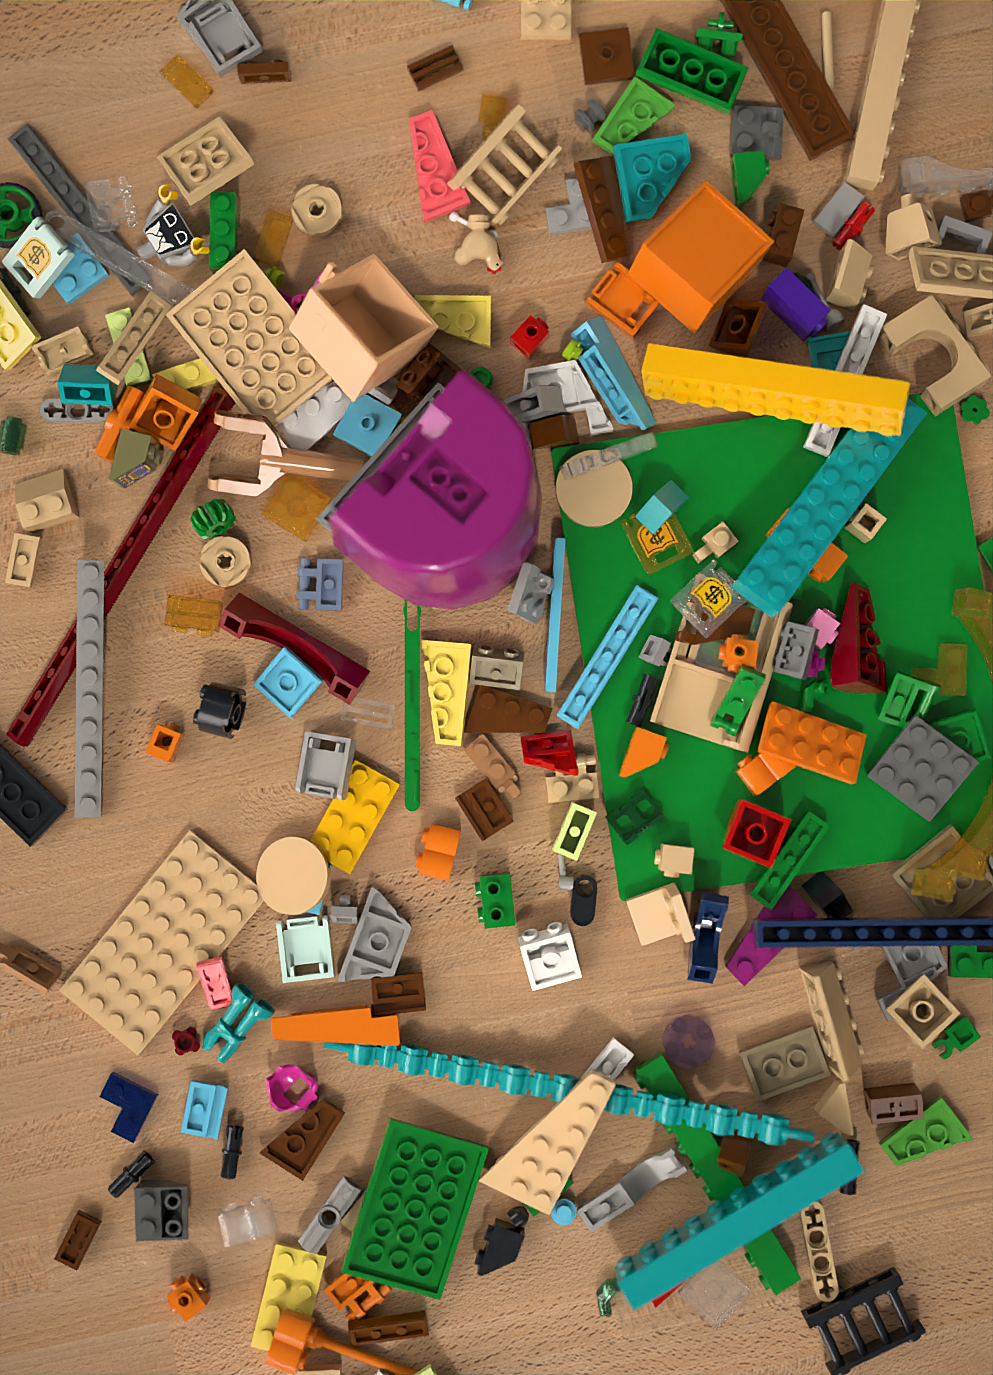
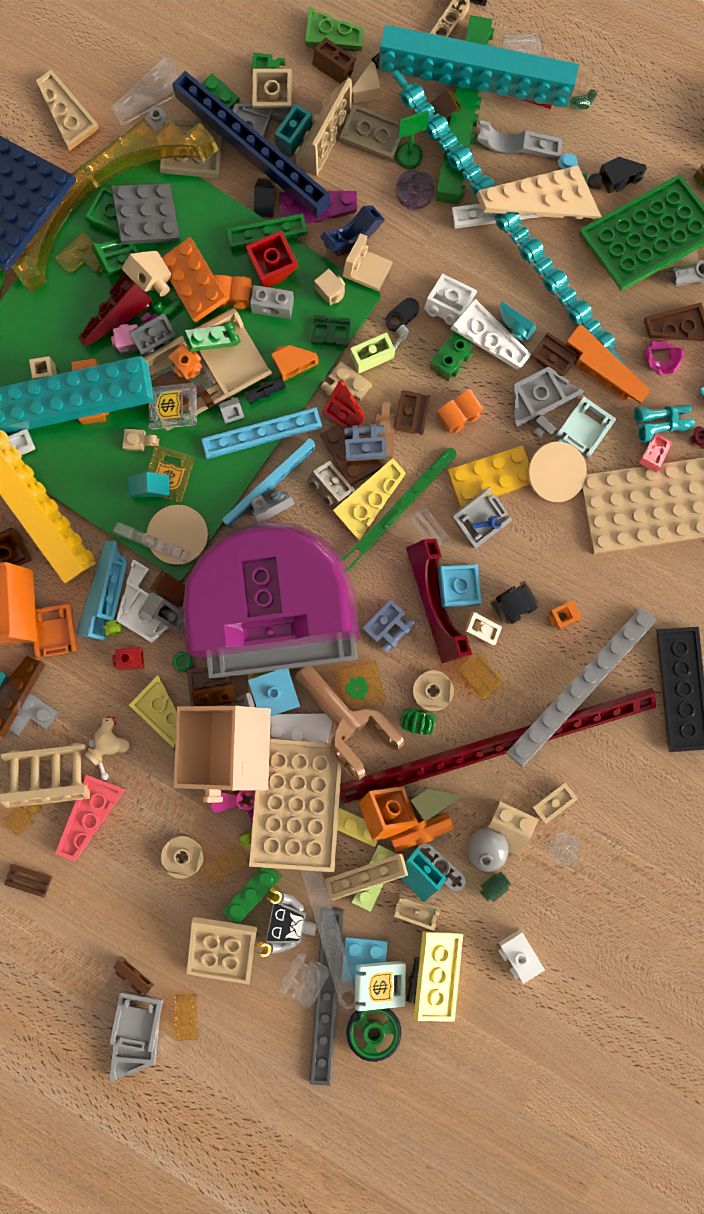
camera: 140 degrees left, 5 degrees down
(46, 460) = (487, 849): none -> light grey cylinder
(229, 659) = (482, 629): none -> slope
(294, 491) = (361, 683): none -> green plant
(313, 770) = (490, 522): none -> blue hand
(462, 990) = (521, 327): none -> teal slope
(482, 952) = (489, 334): none -> white wing
(493, 730) = (365, 448): none -> sand blue plate
(716, 792) = (272, 302): none -> light grey brick
(730, 1076) = (410, 154): none -> green piece
(859, 709) = (148, 271): none -> tan torso
(863, 990) = (293, 129): none -> teal brick

